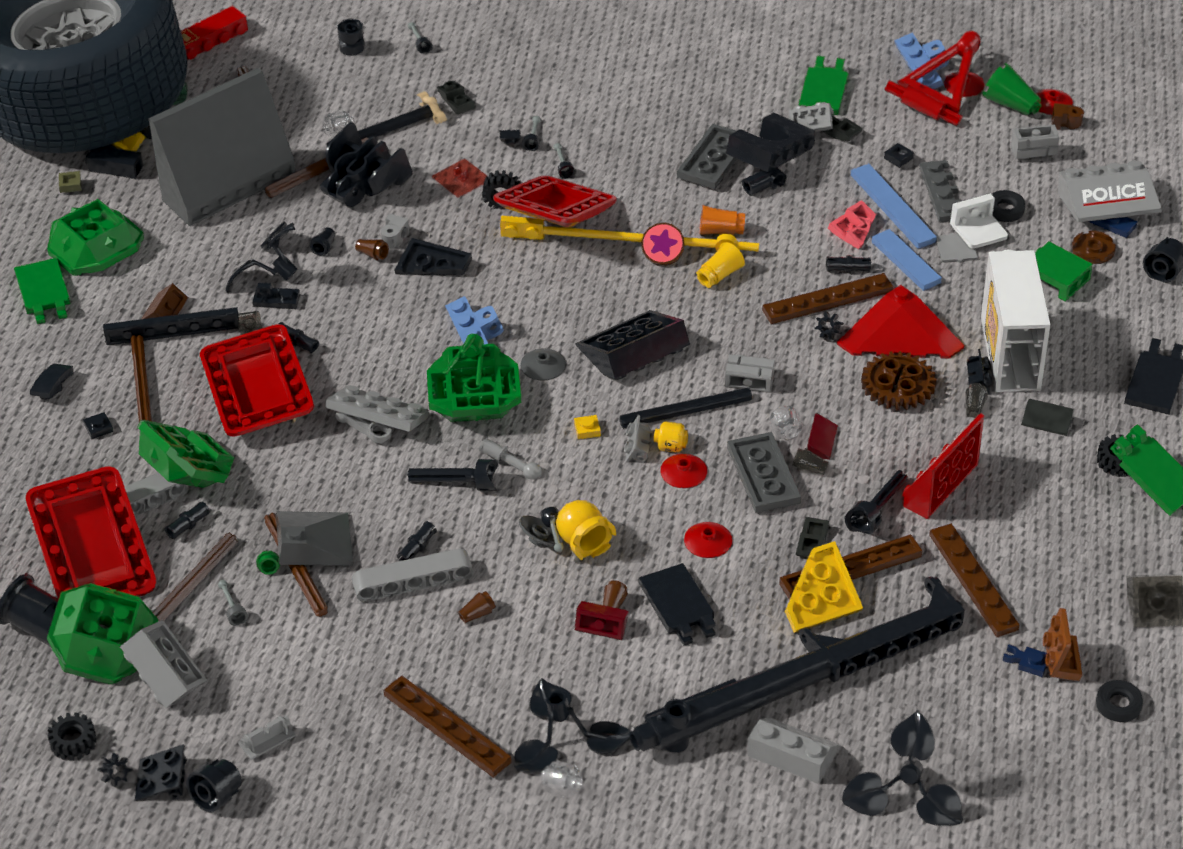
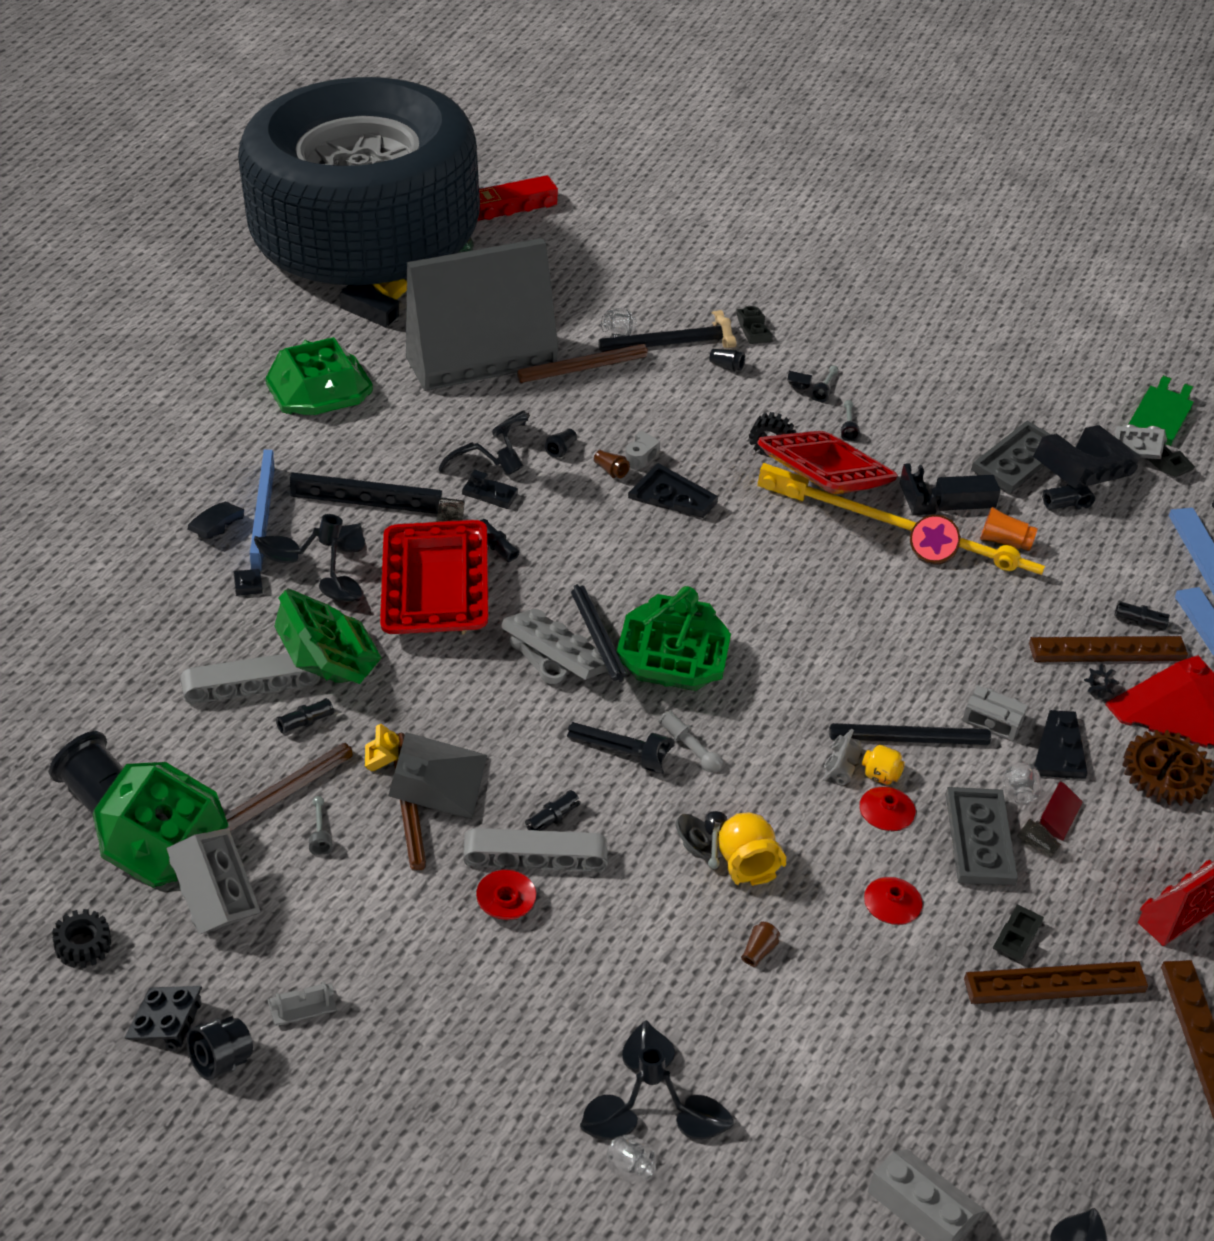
camera: 10 degrees right, 0 degrees up
(42, 288) = (245, 418): green tile -> none
(69, 181) = (315, 313): olive plate -> none
(88, 362) = (262, 507): none -> medium blue tile
(90, 533) = (189, 705): red wedge -> none
(121, 767) = (107, 1000): black gear -> none
(141, 380) = (310, 555): reddish brown axle -> none
(157, 366) = (330, 533): none -> black plant
(166, 303) = (370, 467): reddish brown panel -> none
(261, 530) = (382, 749): none -> yellow bracket
(268, 562) = (376, 790): green plate -> none
(351, 37) = (661, 236): black wheel -> none
(362, 167) = (627, 373): black piece -> none
(400, 614) = (506, 885): none -> red dish
(408, 391) = (598, 633): none -> black axle
(421, 41) = (734, 258): black hinge -> none
(443, 132) = (728, 358): none -> black cone
(447, 726) = (517, 1051): reddish brown plate -> none
(460, 177) = (732, 411): clear red piece -> none
(469, 322) = (696, 574): medium blue plate -> none
(477, 607) = (598, 910): reddish brown cone -> none
(543, 364) = (761, 641): dark grey dish -> none
(587, 427) = (790, 727): yellow plate -> none
(601, 620) = (738, 966): dark red slope -> none
(635, 343) = (872, 644): black slope -> none
(636, 208) = (916, 491): none -> black hinge
(678, 198) = (966, 492): none -> black brick
(678, 602) = (837, 969): black tile -> none
(720, 265) = (994, 579): yellow plant -> none
(810, 387) = (1061, 747): none -> black wing
(822, 590) = (1013, 1004): yellow plate -> none
(827, 658) = (999, 1094): black piece -> none
(854, 224) = (1163, 567): coral slope -> none
(867, 514) = (1090, 923): black piece -> none

